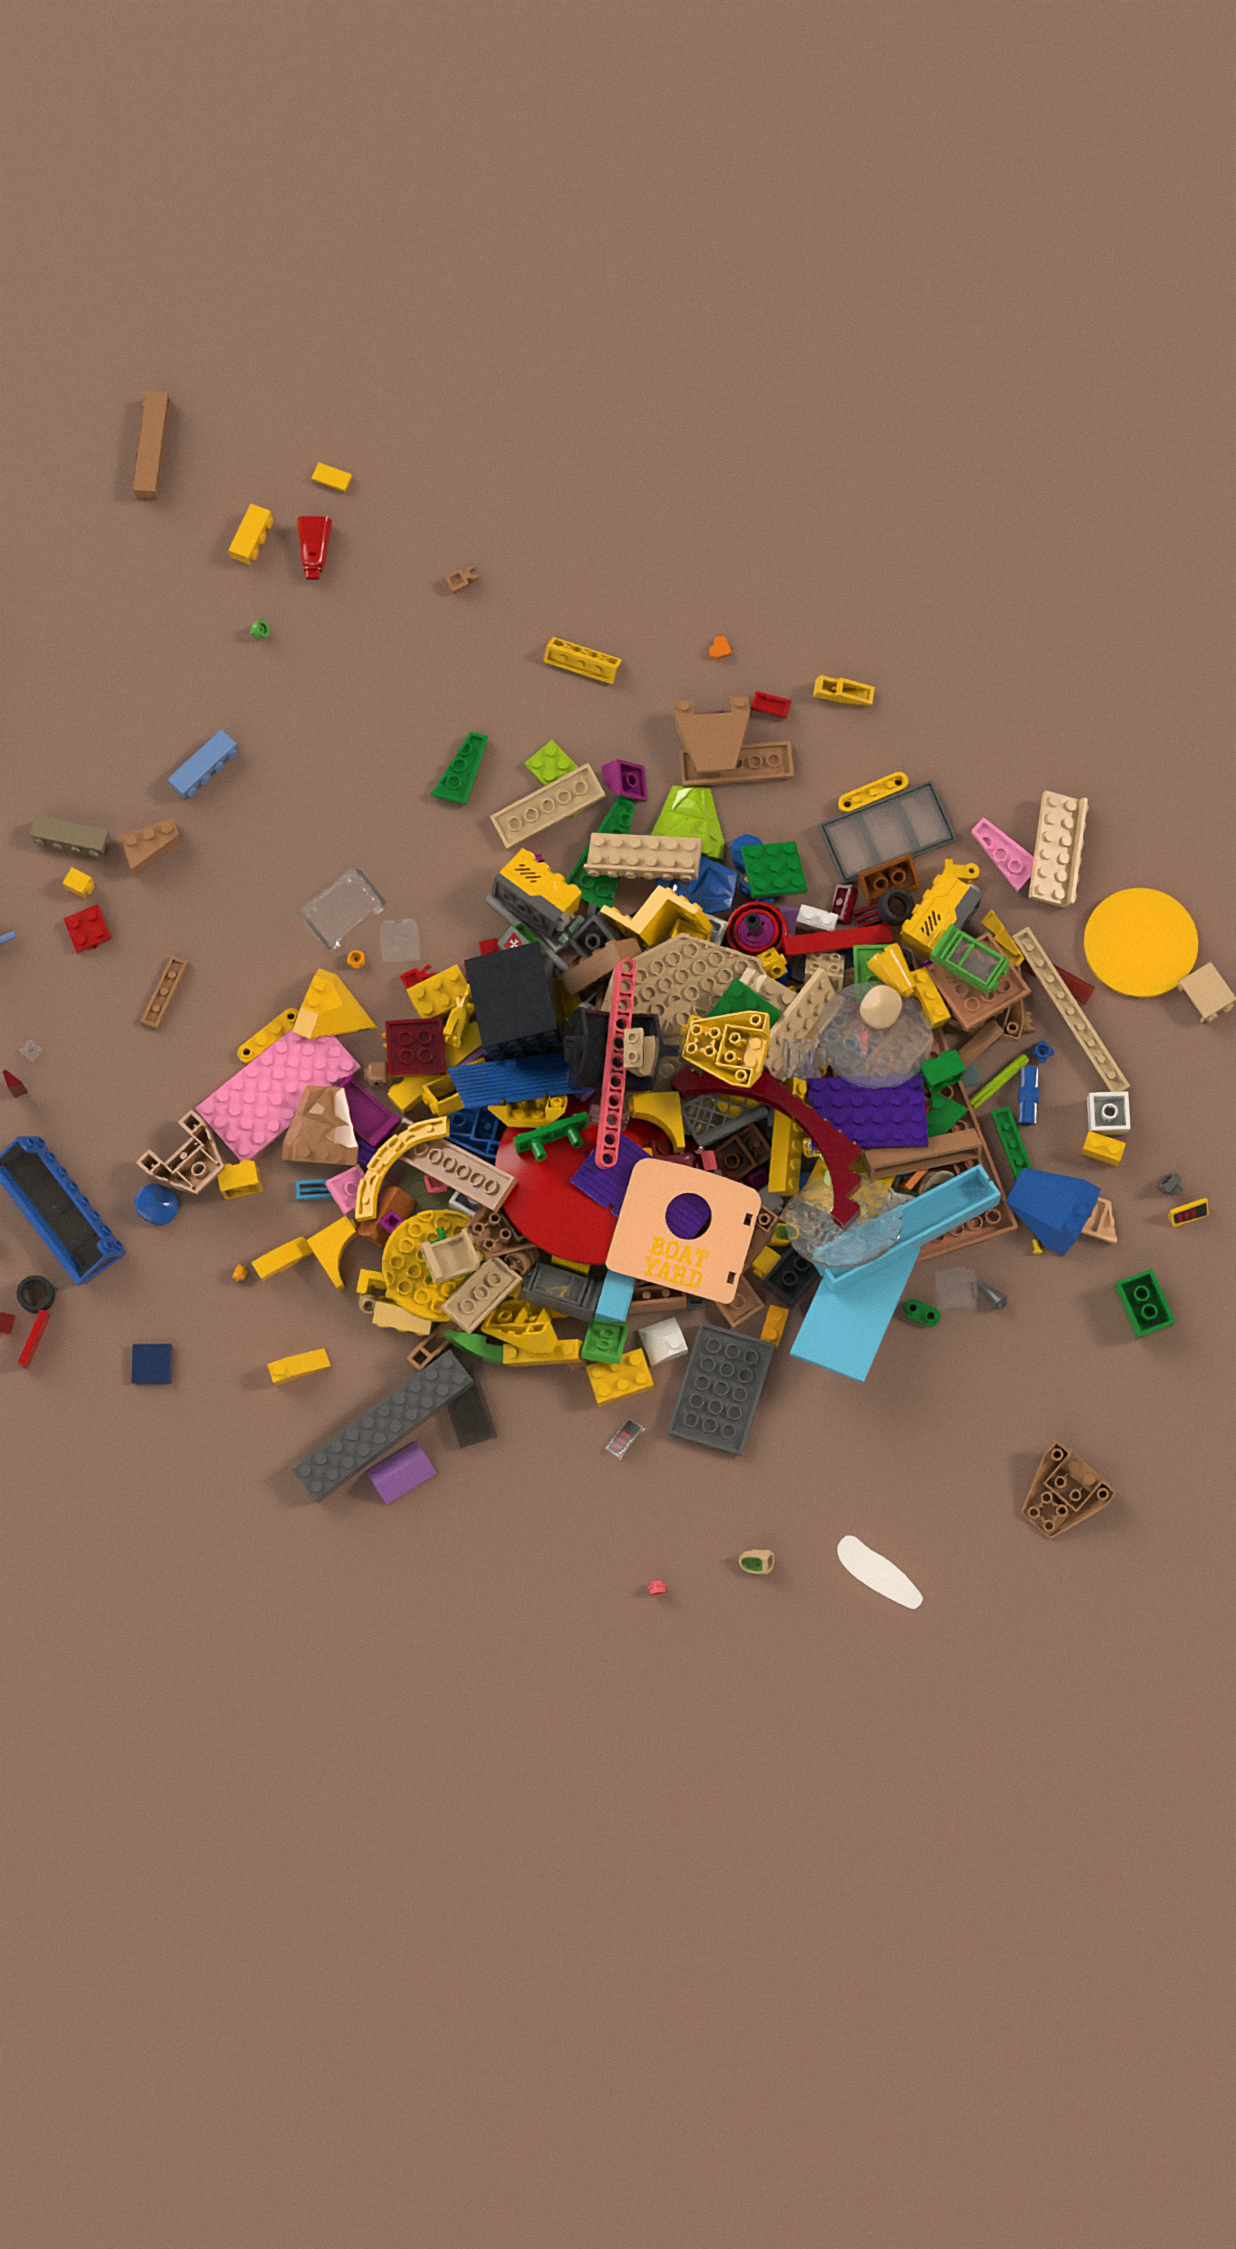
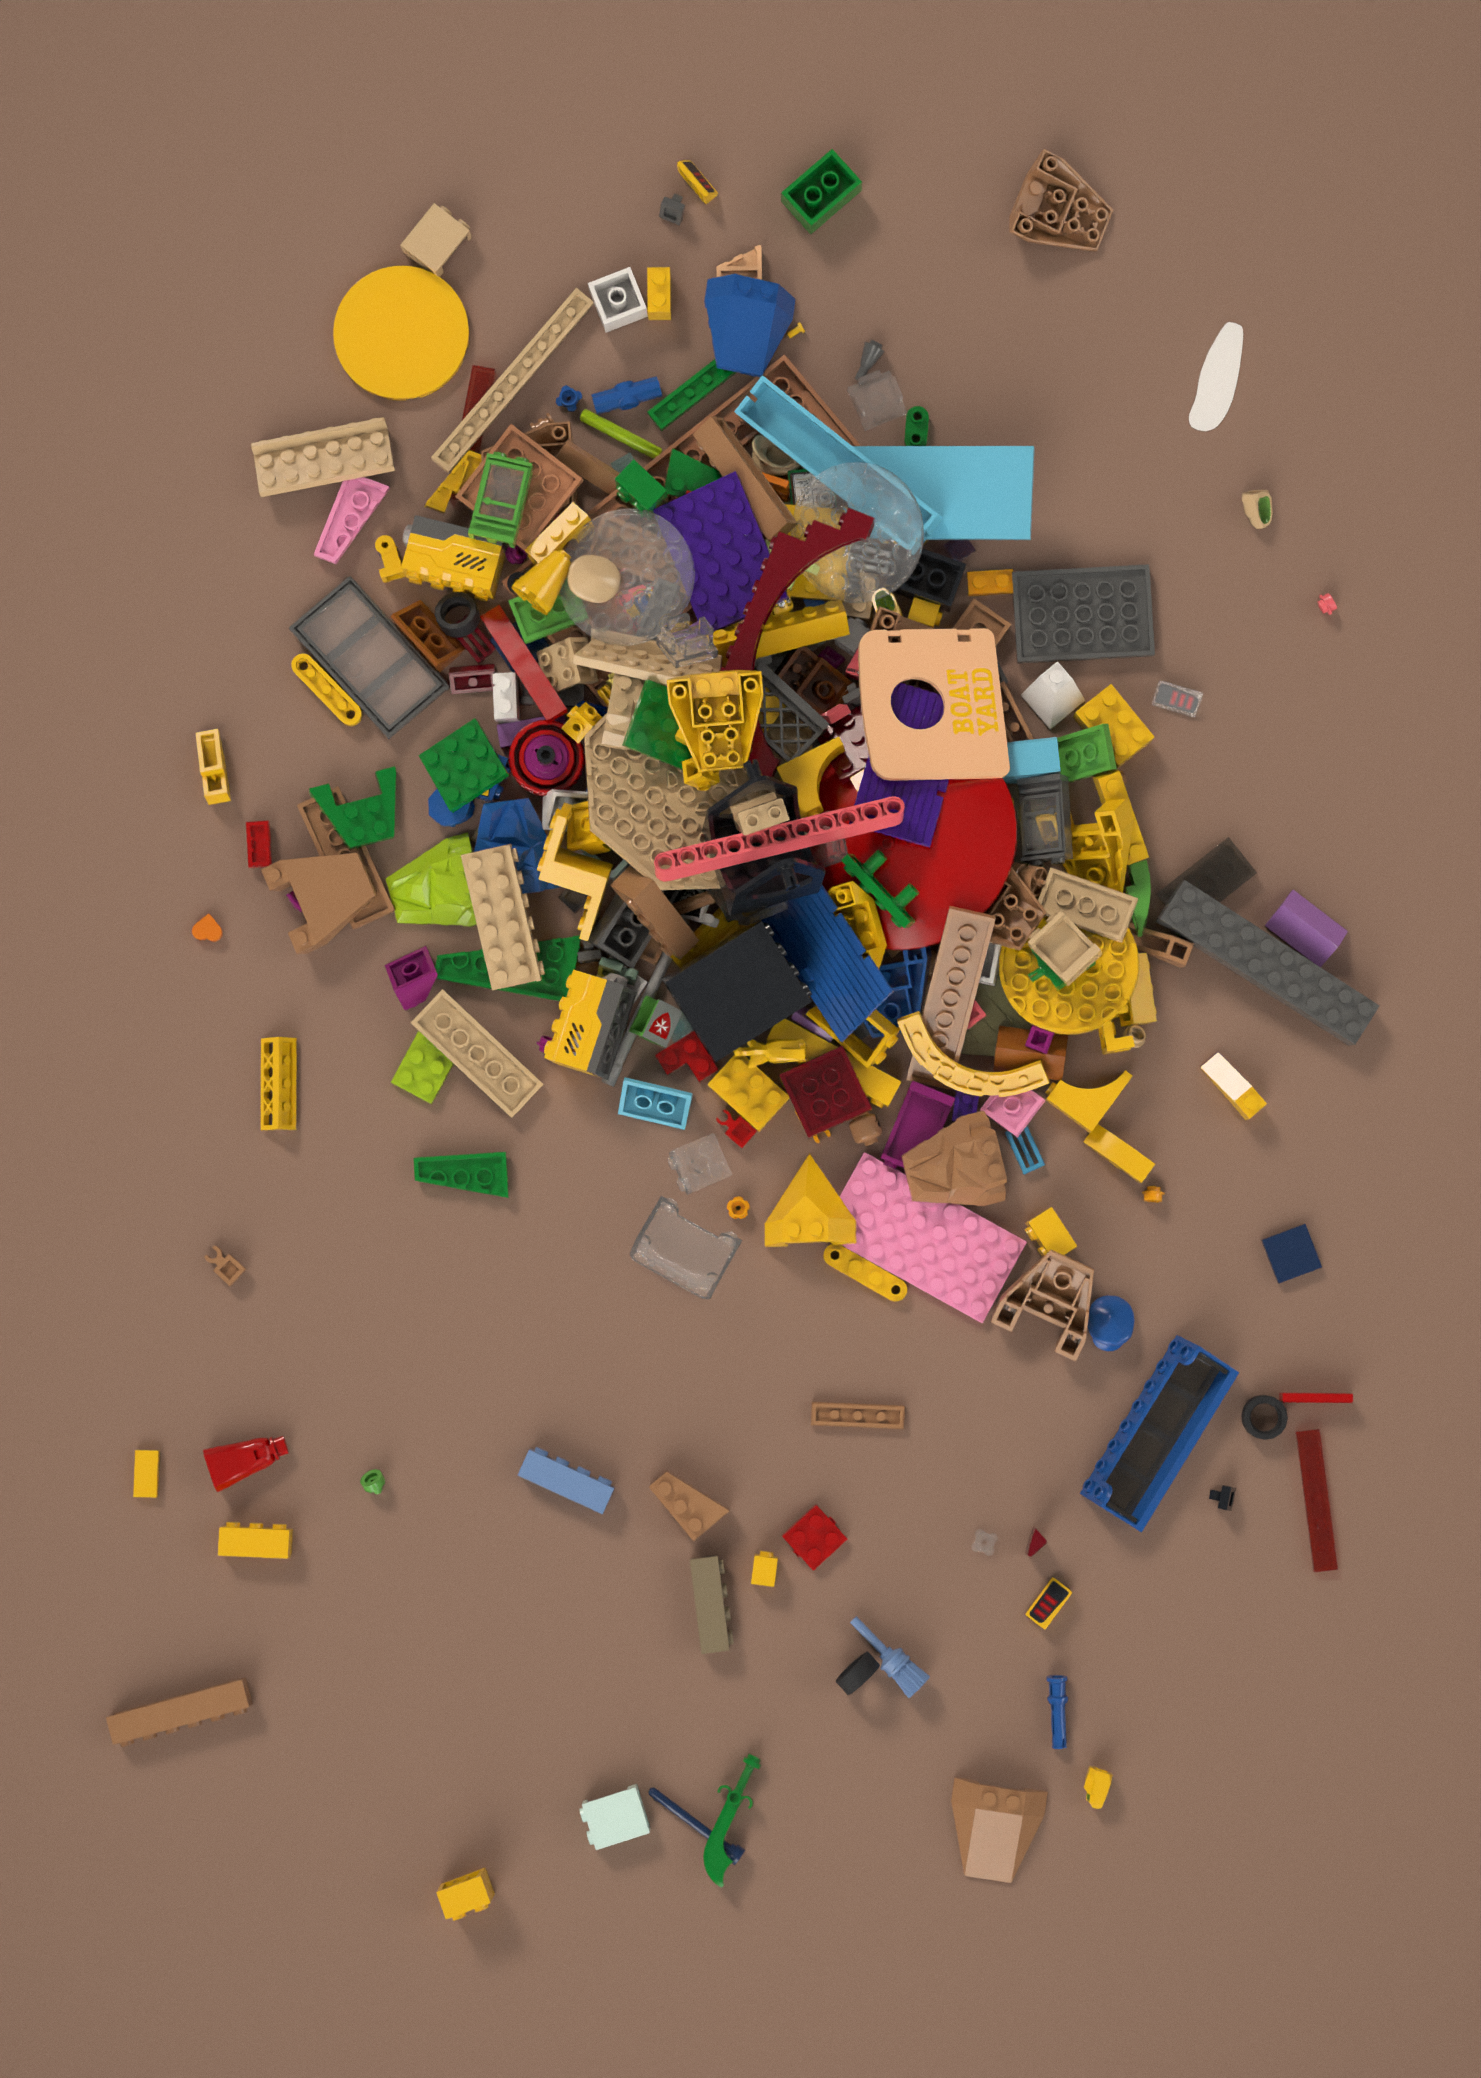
camera: 105 degrees left, 10 degrees up
(460, 925) = (655, 1103): none -> medium azure slope
(759, 785) = (362, 820): none -> green wing

